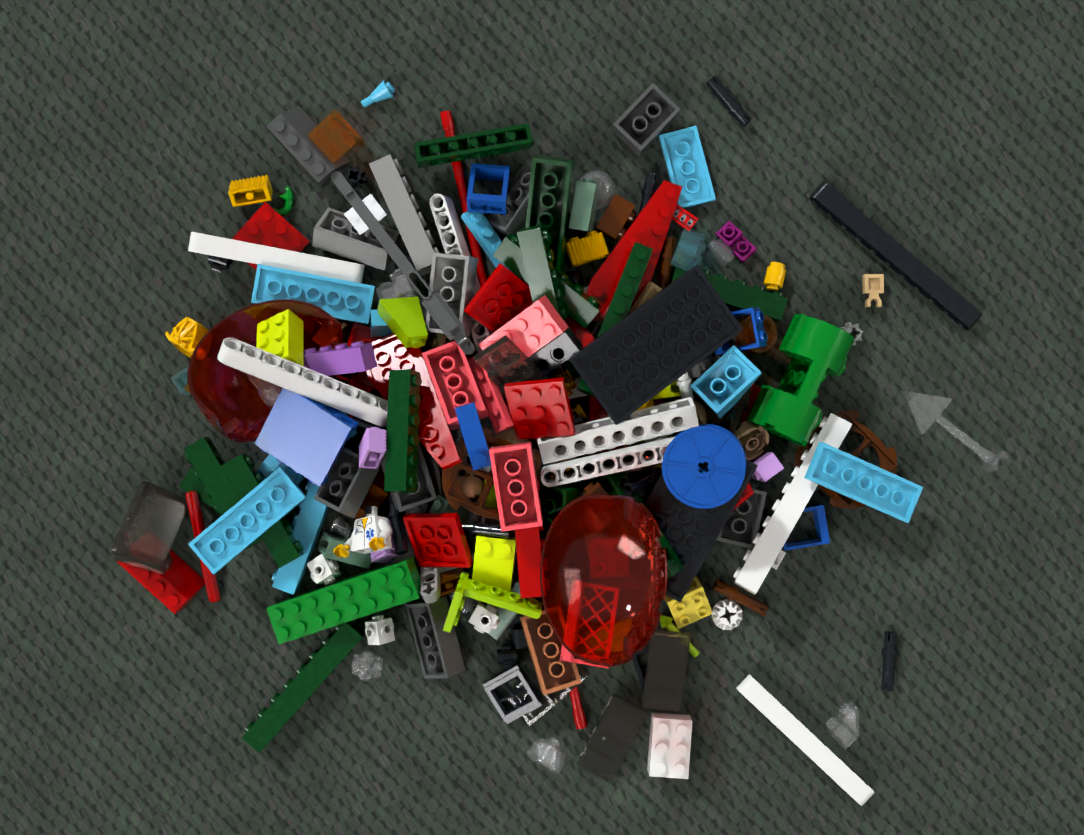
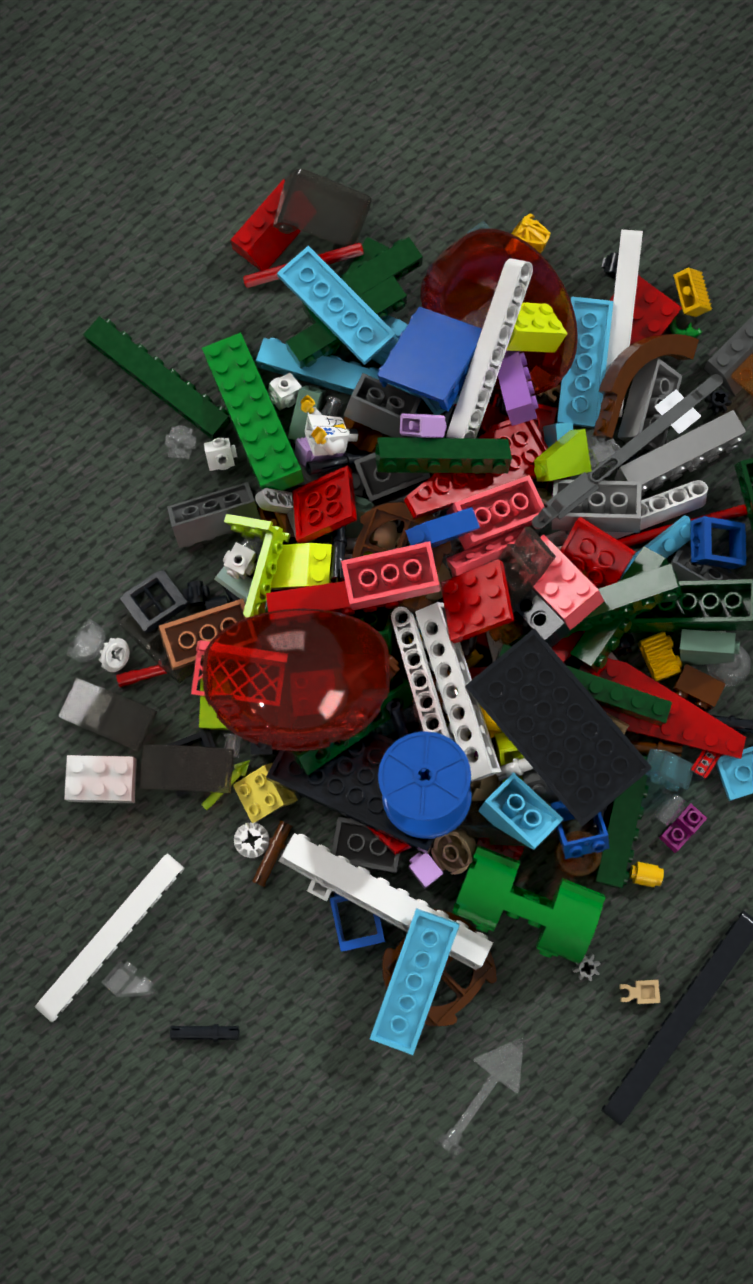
camera: 85 degrees right, 10 degrees down
(321, 256) = (625, 368): none -> reddish brown arch
(556, 723) = (121, 653): none -> white gear

